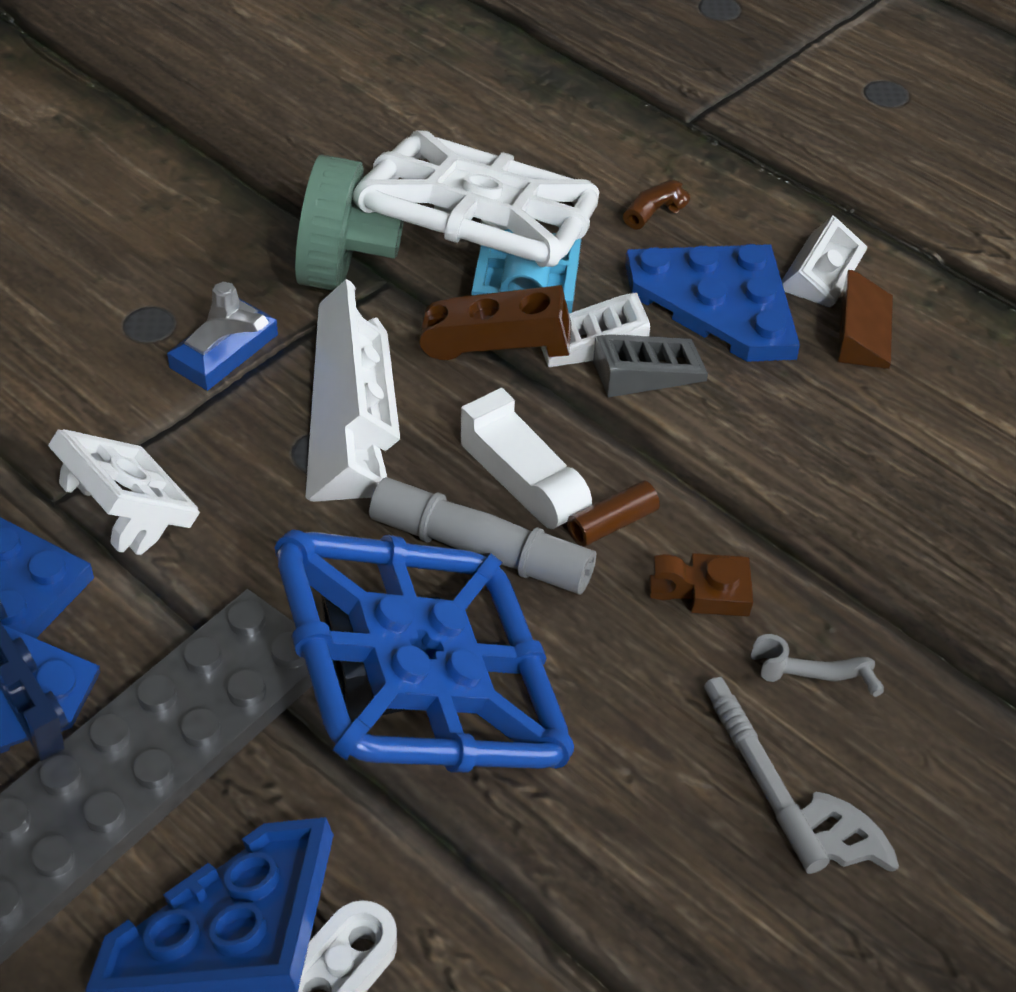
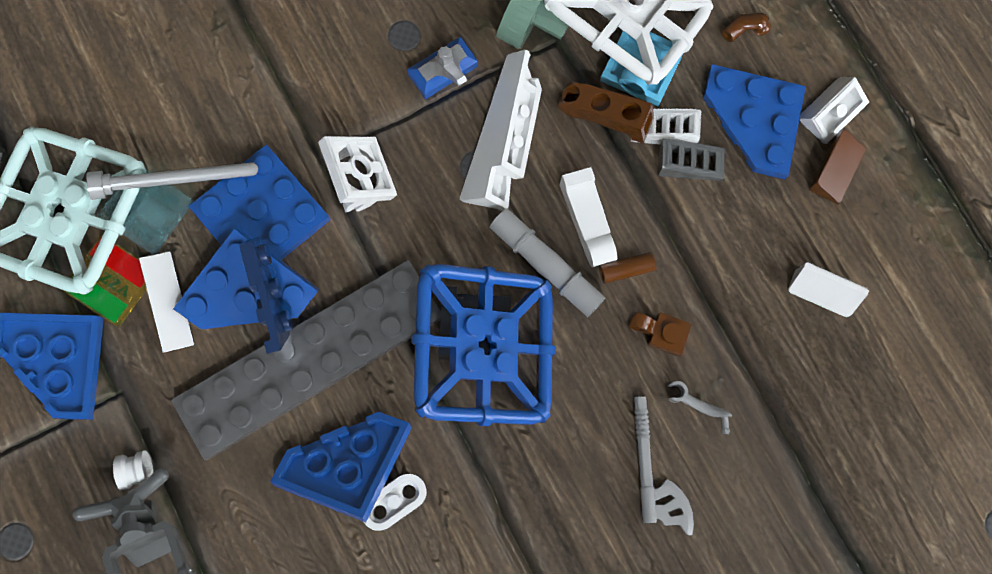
camera: 15 degrees right, 30 degrees up
(930, 461) = (827, 289): none -> white slope

